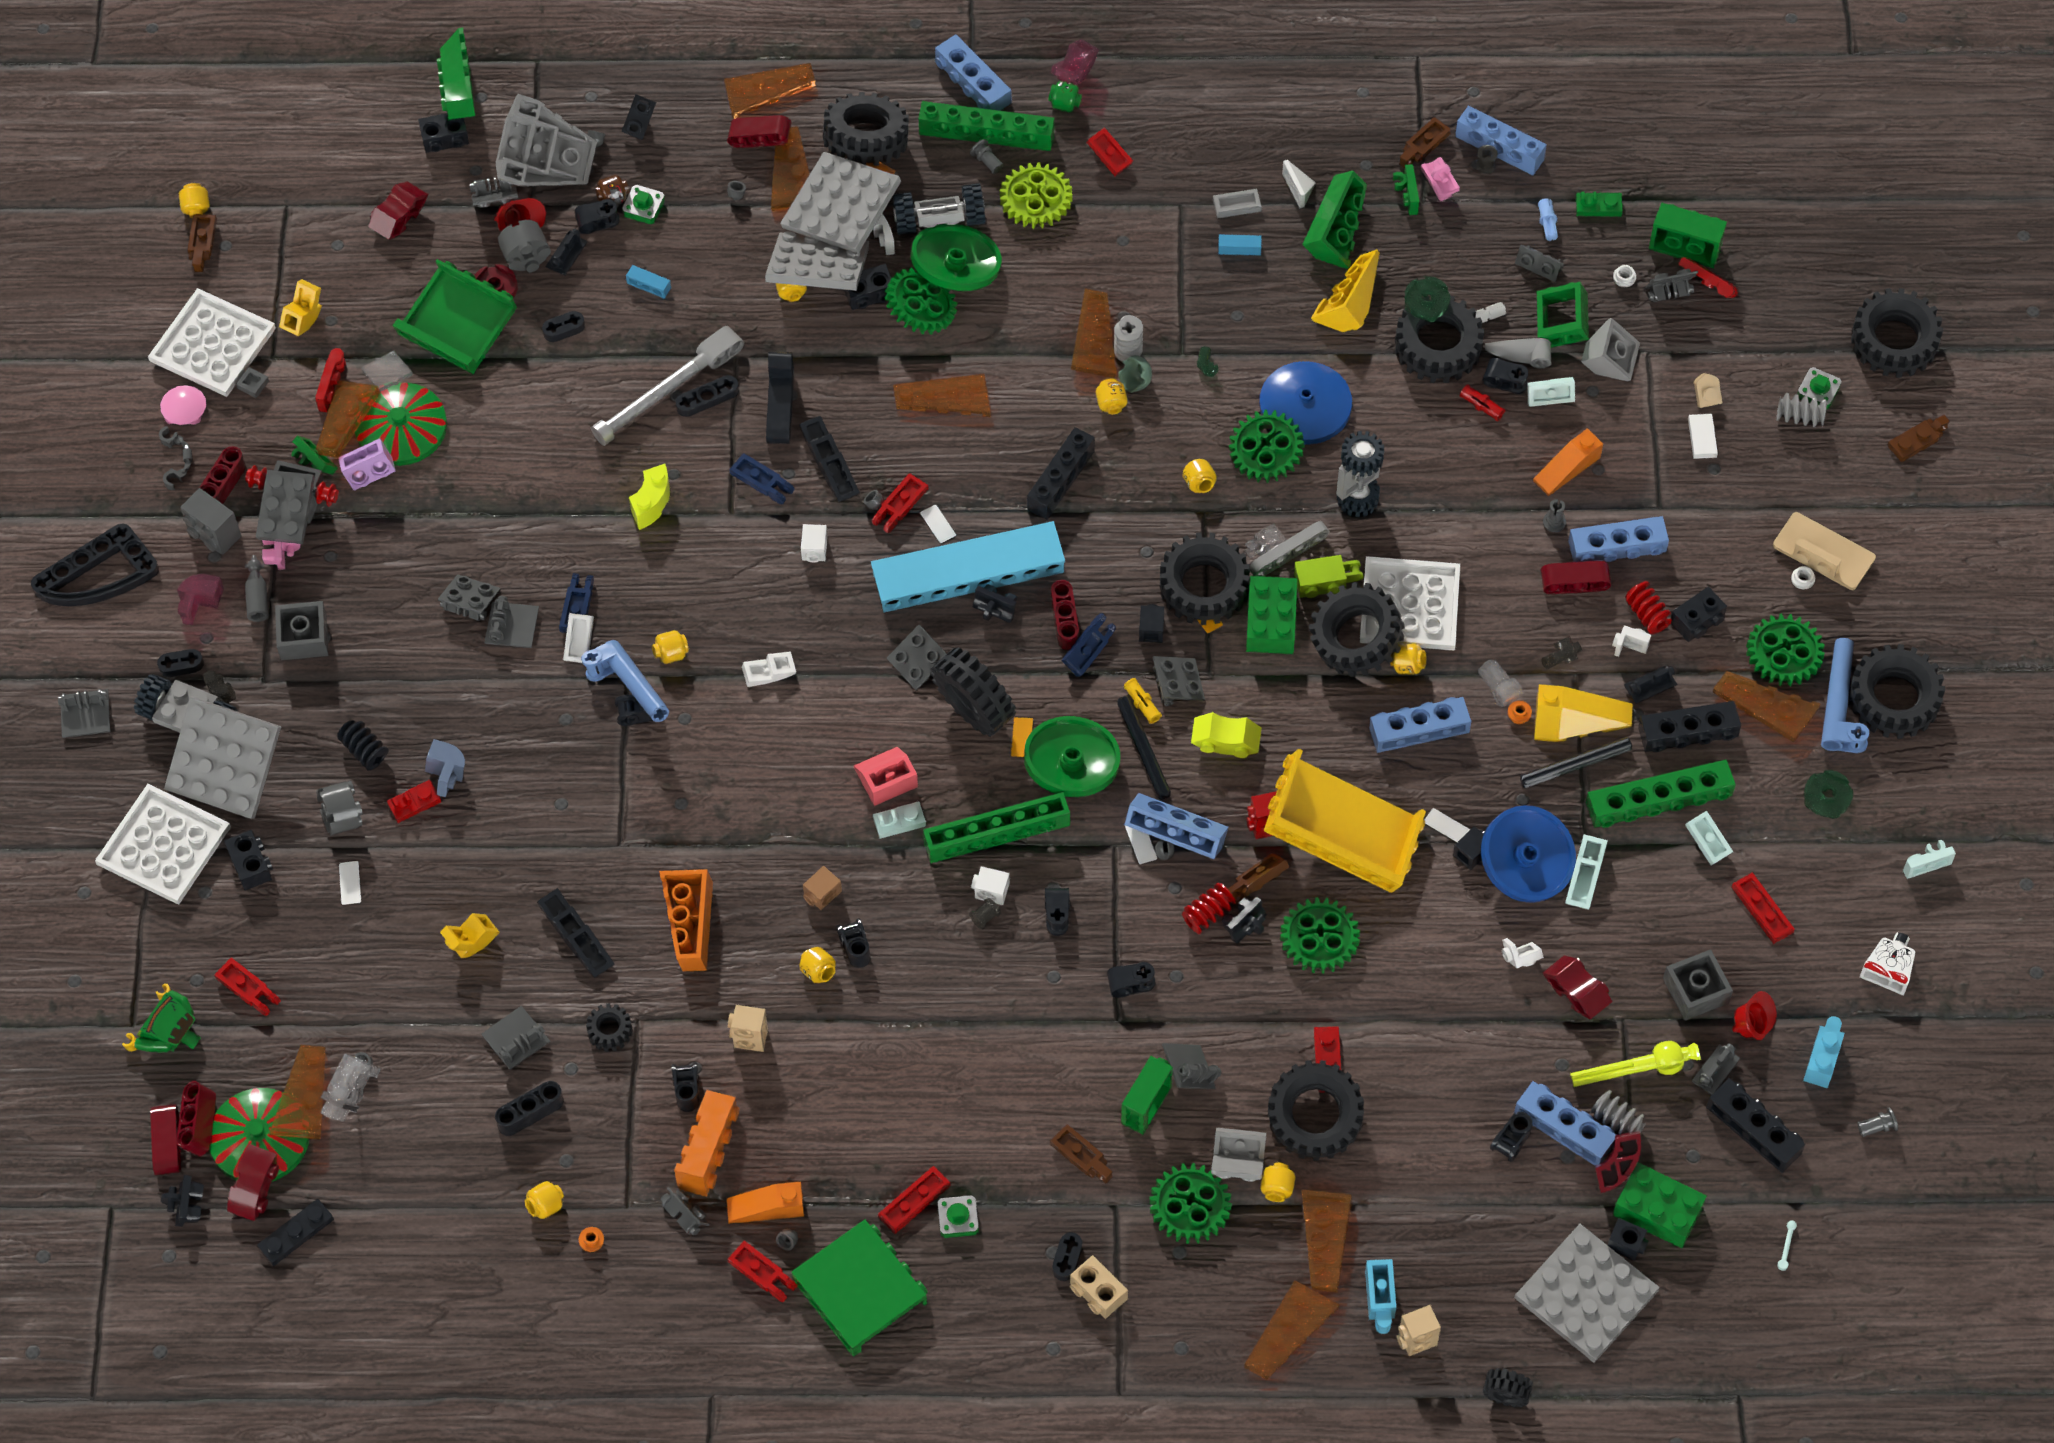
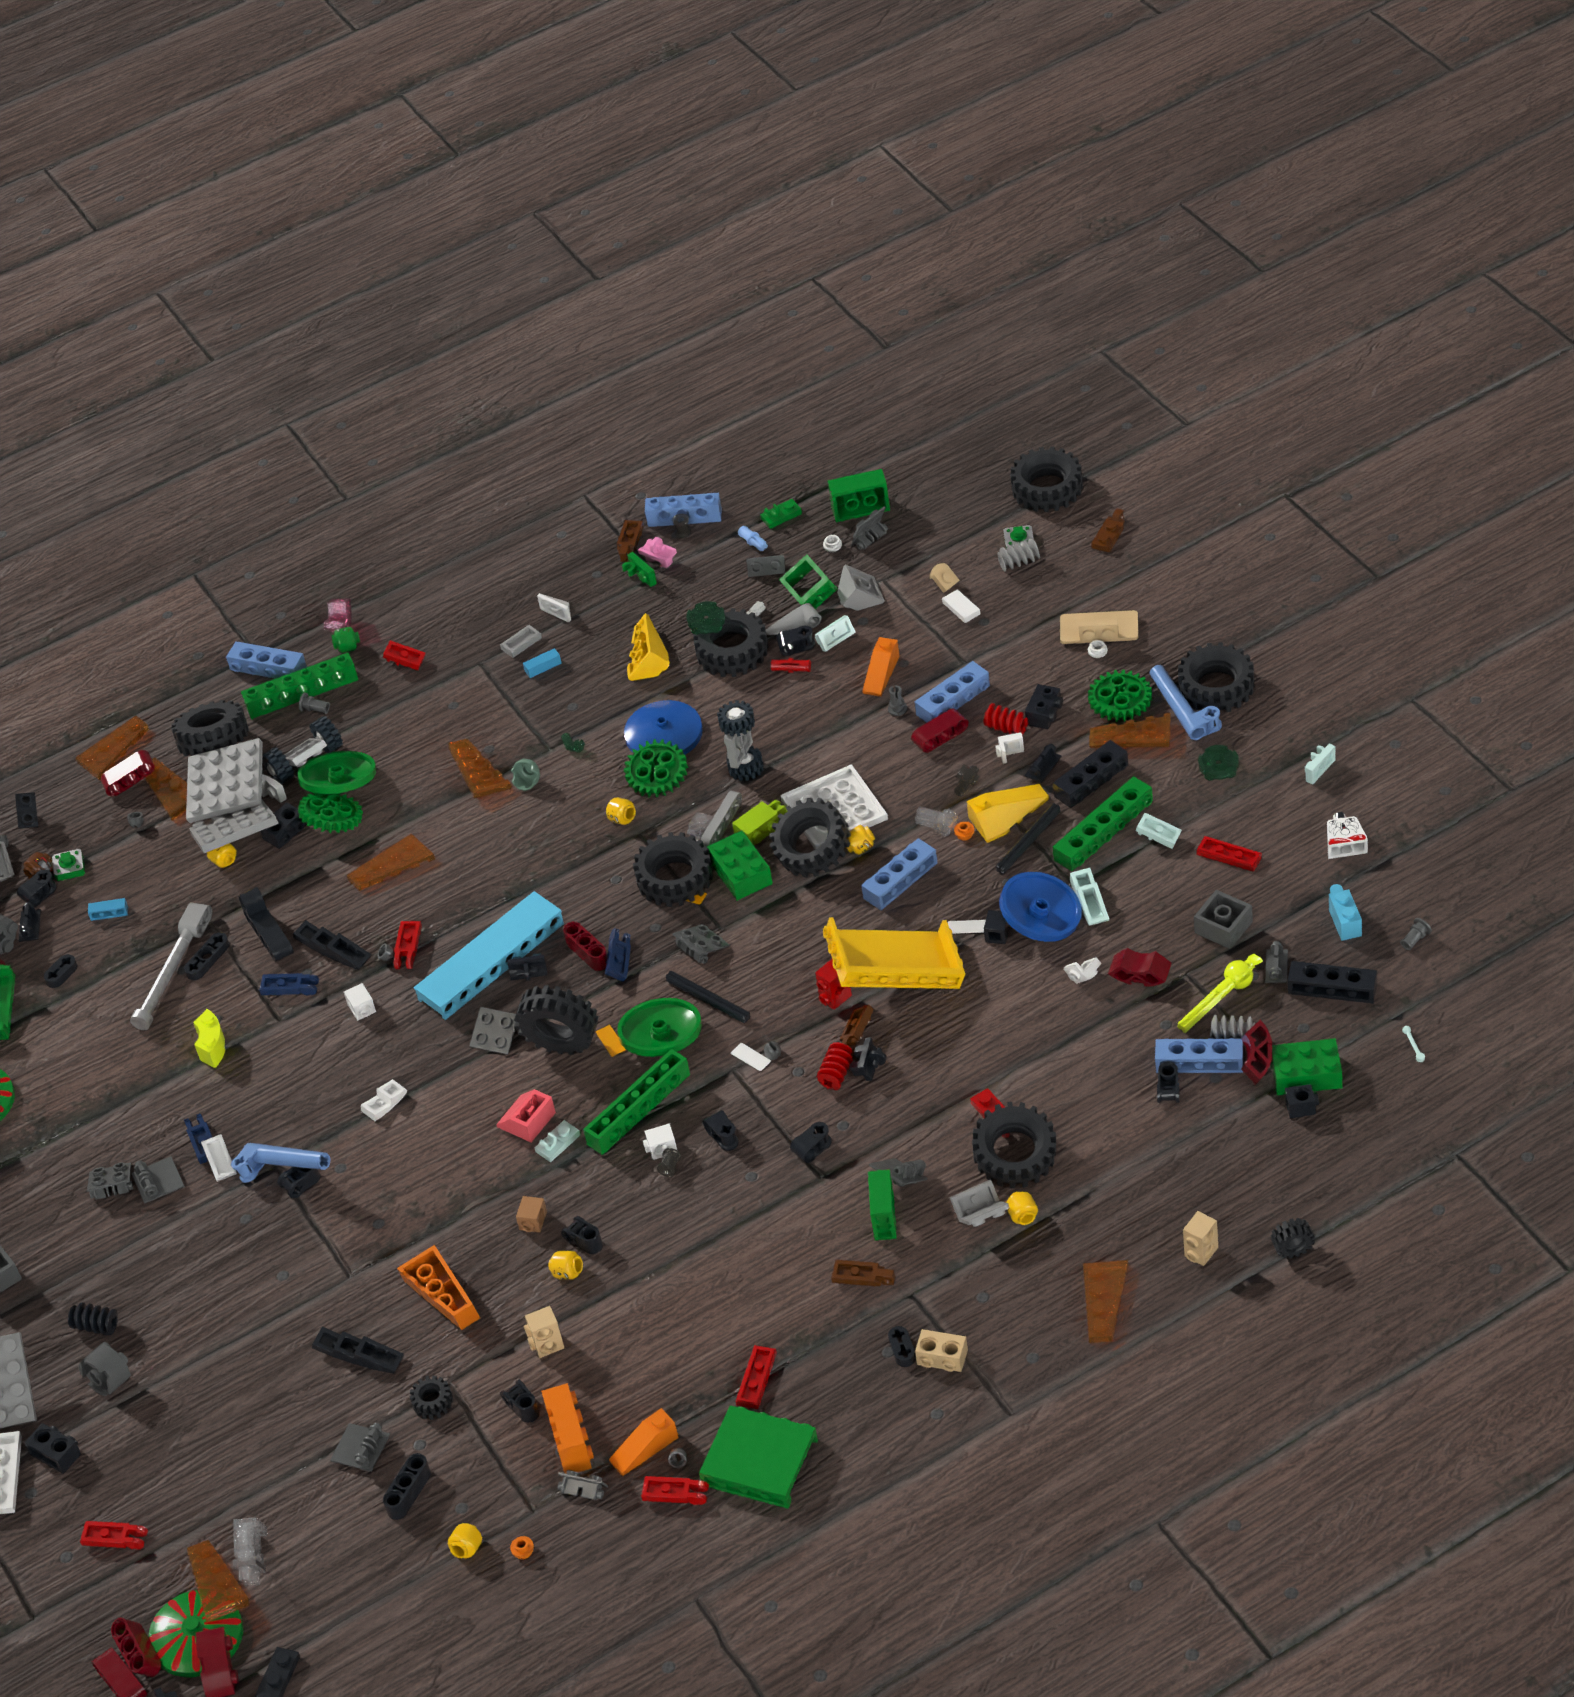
camera: 25 degrees left, 15 degrees down
(166, 1025) = (64, 1598): green torso -> none
(349, 882) = (147, 1420): white sticker -> none
(414, 801) = (162, 1336): red plate -> none
(447, 763) = (170, 1294): sand blue brick -> none
(471, 935) = (275, 1397): yellow brick -> none
(670, 647) = (296, 1125): yellow head -> none
(938, 523) = (445, 943): white sticker -> none
(958, 1216) = (798, 1368): piece -> none
(1036, 195) = (368, 708): lime gear -> none
(1060, 473) = (516, 862): black brick -> none
(1111, 396) = (518, 797): yellow head -> none
(1128, 337) = (504, 753): light grey piece -> none
(1134, 689) = (684, 968): yellow pin -> none
(1151, 623) = (655, 917): black brick -> none
(1176, 825) = (771, 1028): medium blue brick -> none
(1182, 1222) = (967, 1252): green gear -> none
(1226, 735) = (763, 954): neon yellow brick -> none
(1322, 955) = (929, 1039): green gear -> none
(1326, 1231) = (1081, 1220): clear orange wing -> none
(1336, 220) = (602, 613): green wedge -> none
(1381, 1293) = (1153, 1232): medium azure brick -> none
(1587, 1293) = (1298, 1152): light grey plate -> none
(1710, 279) = (895, 514): red hinge -> none
(1756, 1016) = (1277, 918): red piece -> none

